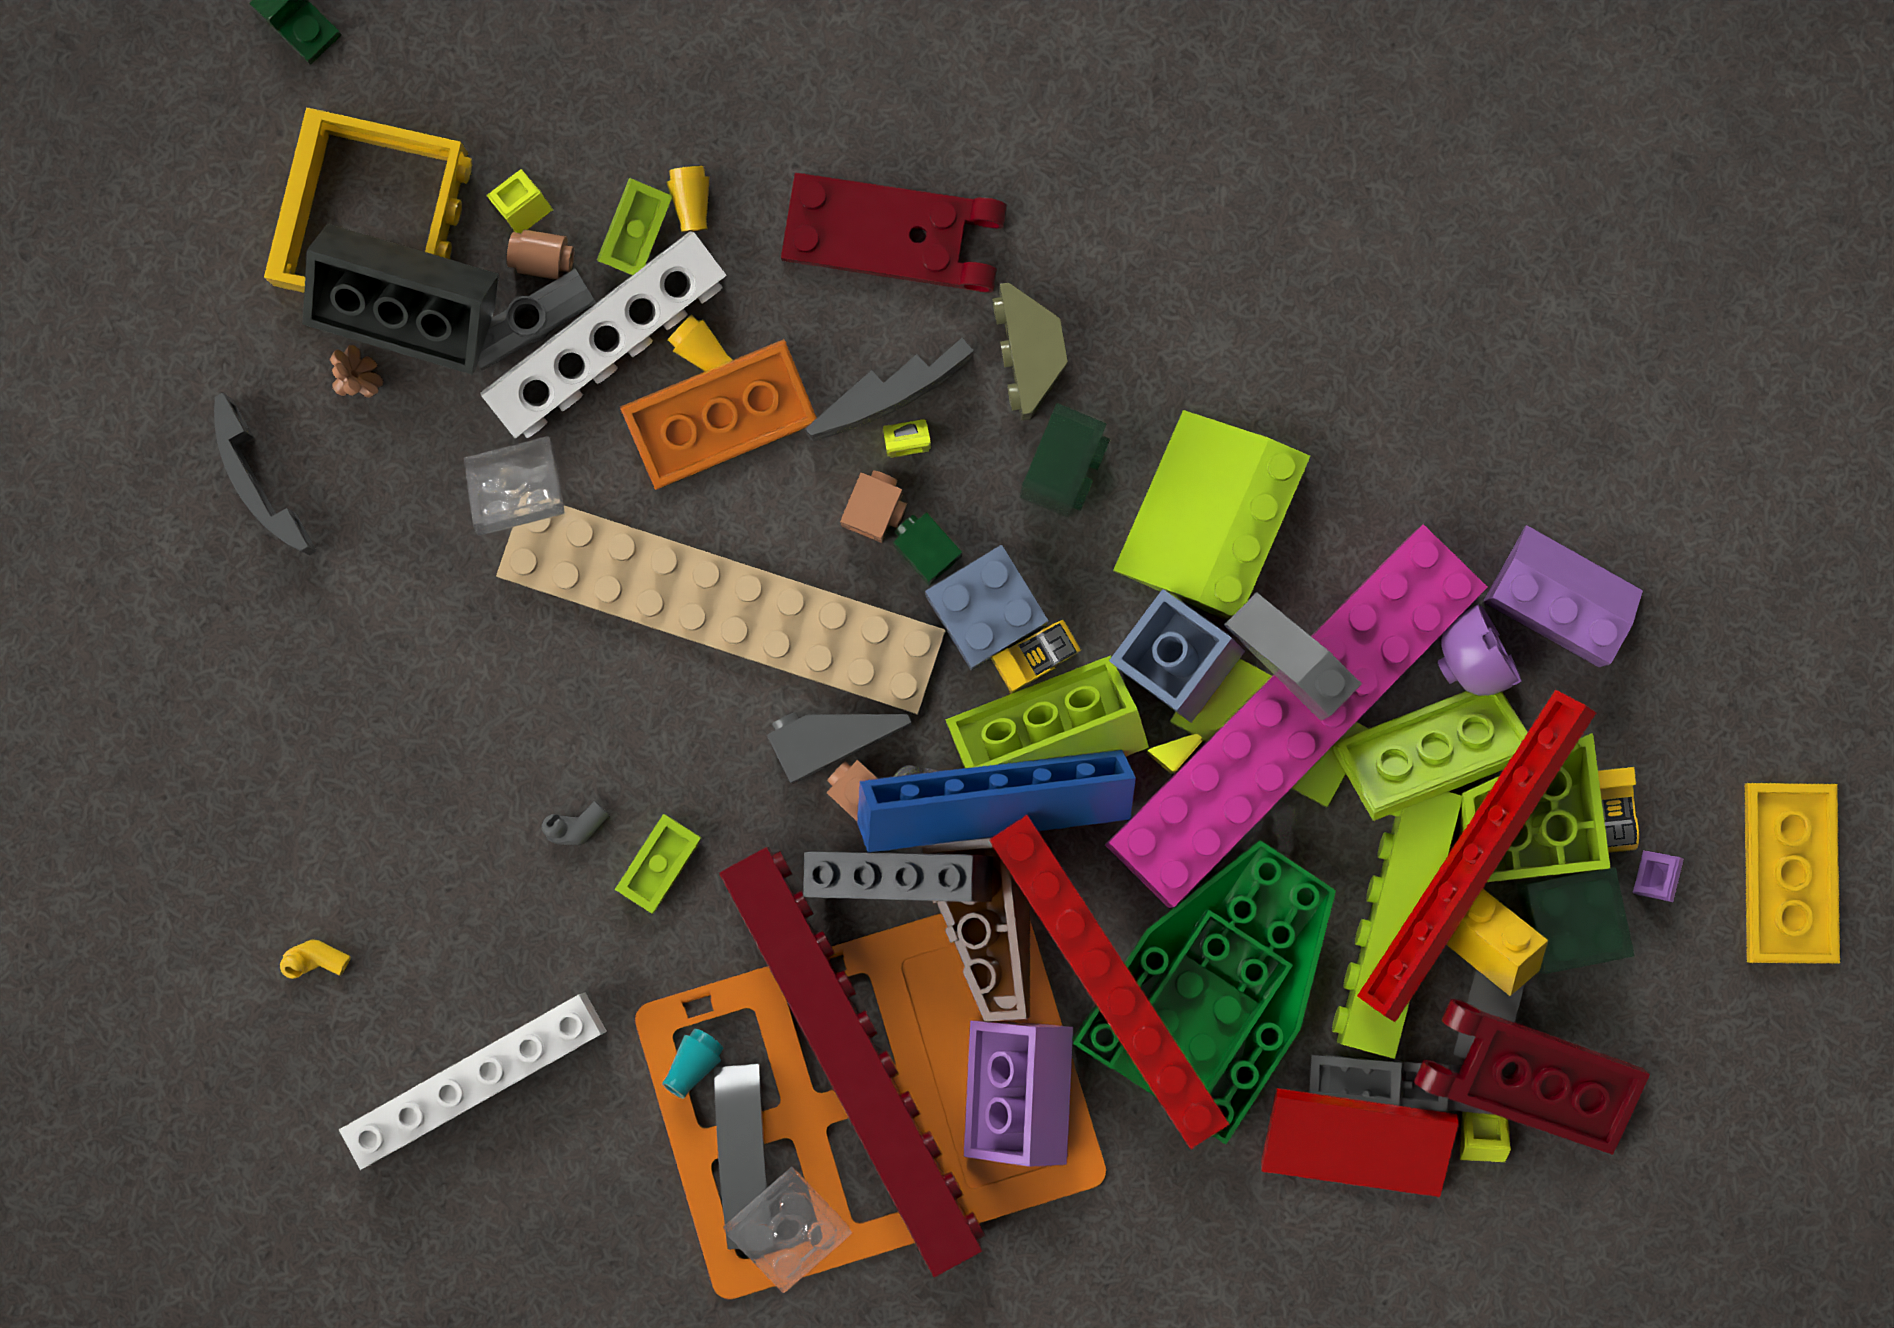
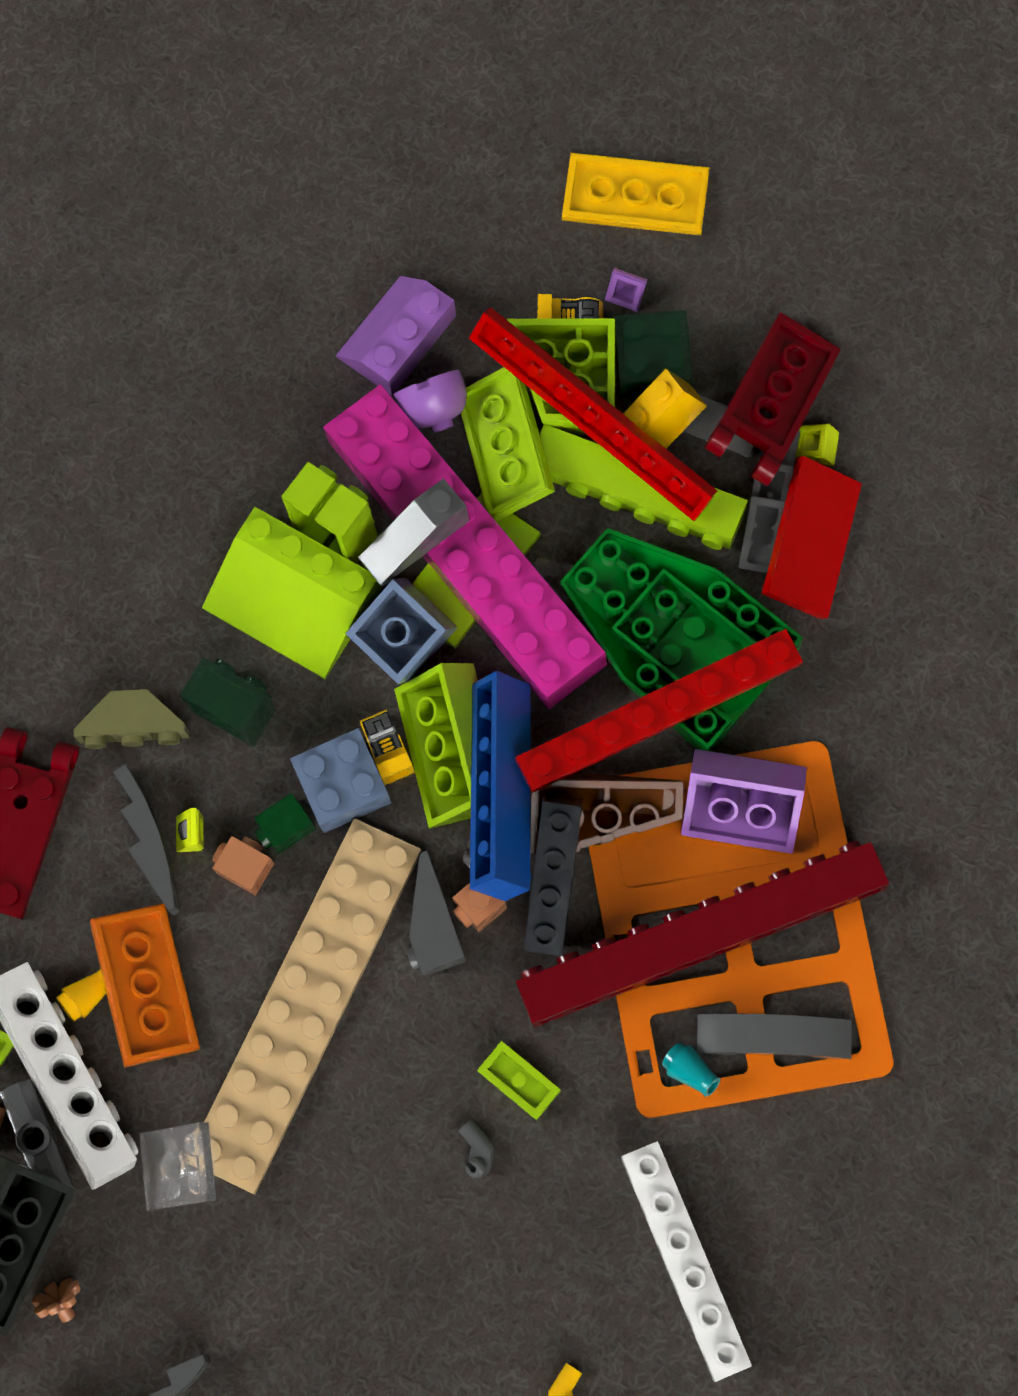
camera: 75 degrees left, 10 degrees down
(787, 1229) = (838, 1003): clear plate -> none
(1175, 753) = (482, 644): neon yellow slope -> none
(1312, 543) = (324, 507): none -> lime piece

